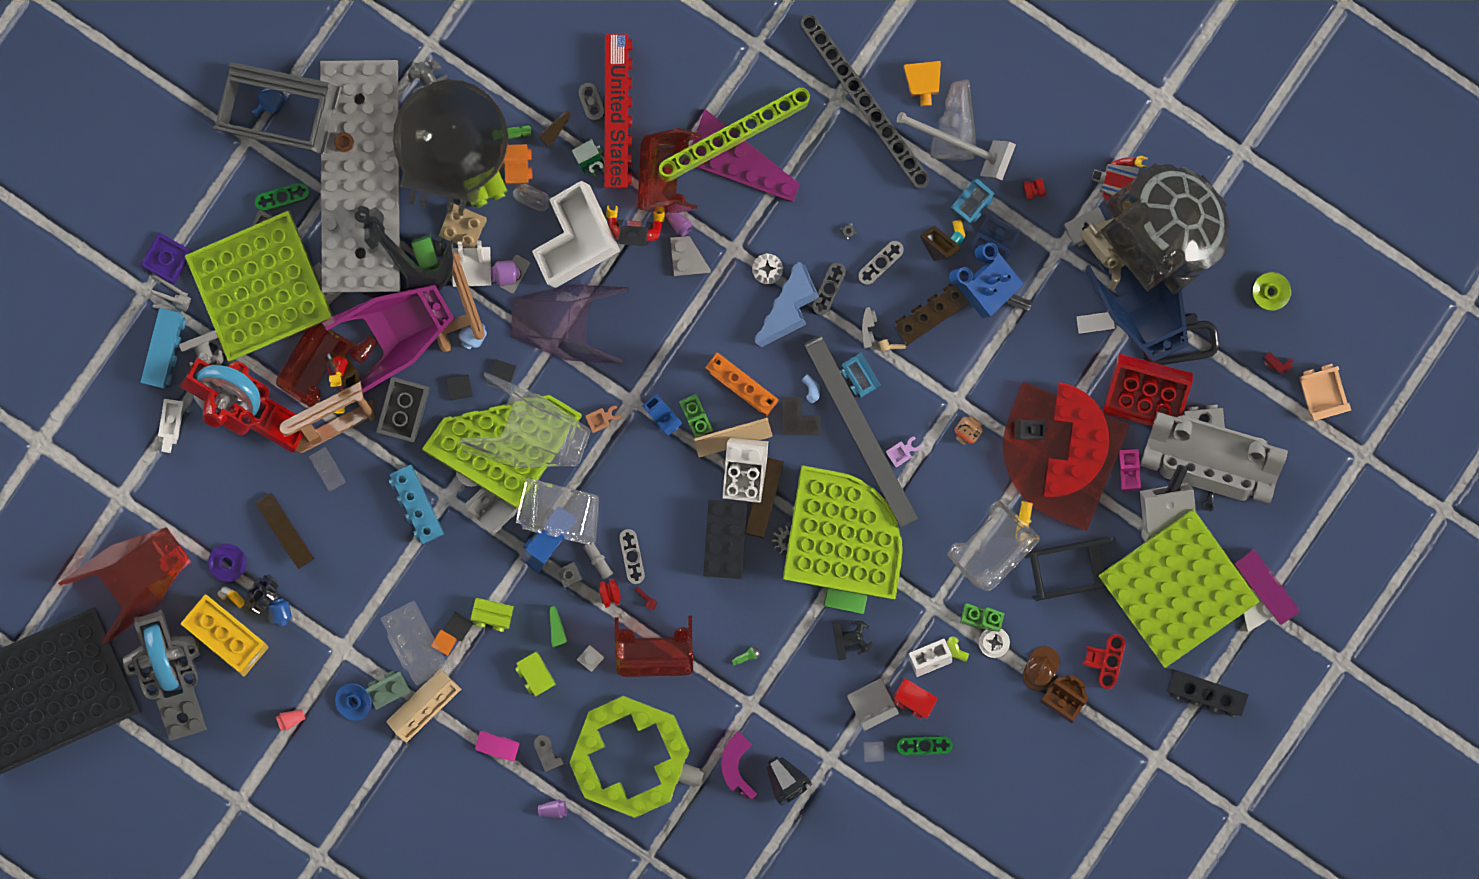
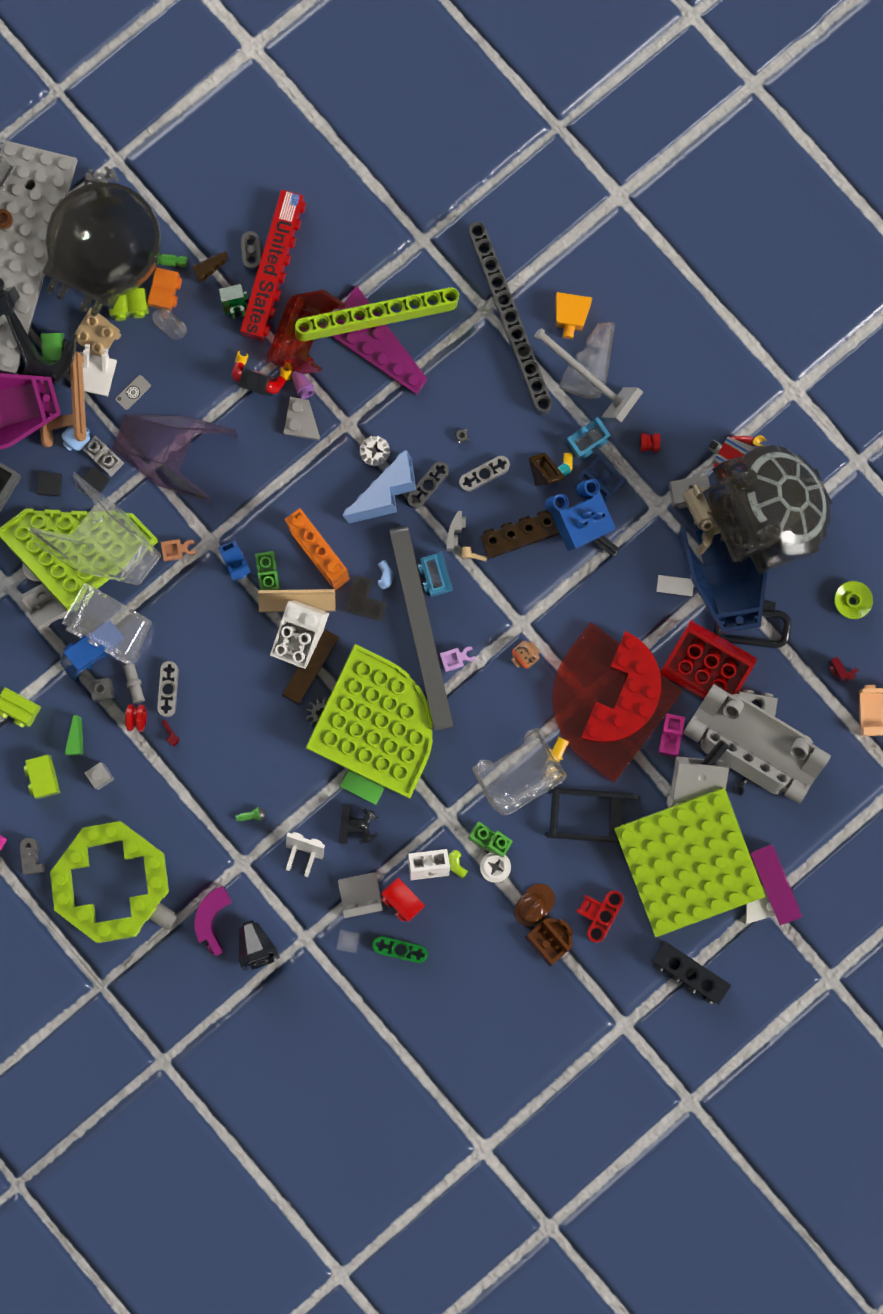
camera: 15 degrees right, 5 degrees down
(503, 345) = (103, 456): none -> light grey slope
(504, 273) = (123, 387): medium lavender head -> none
(553, 809) = (24, 914): medium lavender cone -> none
(585, 236) = (206, 374): white piece -> none
(654, 655) = (161, 790): clear red windscreen -> none
(725, 539) = (261, 695): black brick -> none
(798, 670) = (314, 847): none -> white plate
(1030, 429) = (584, 668): black slope -> none

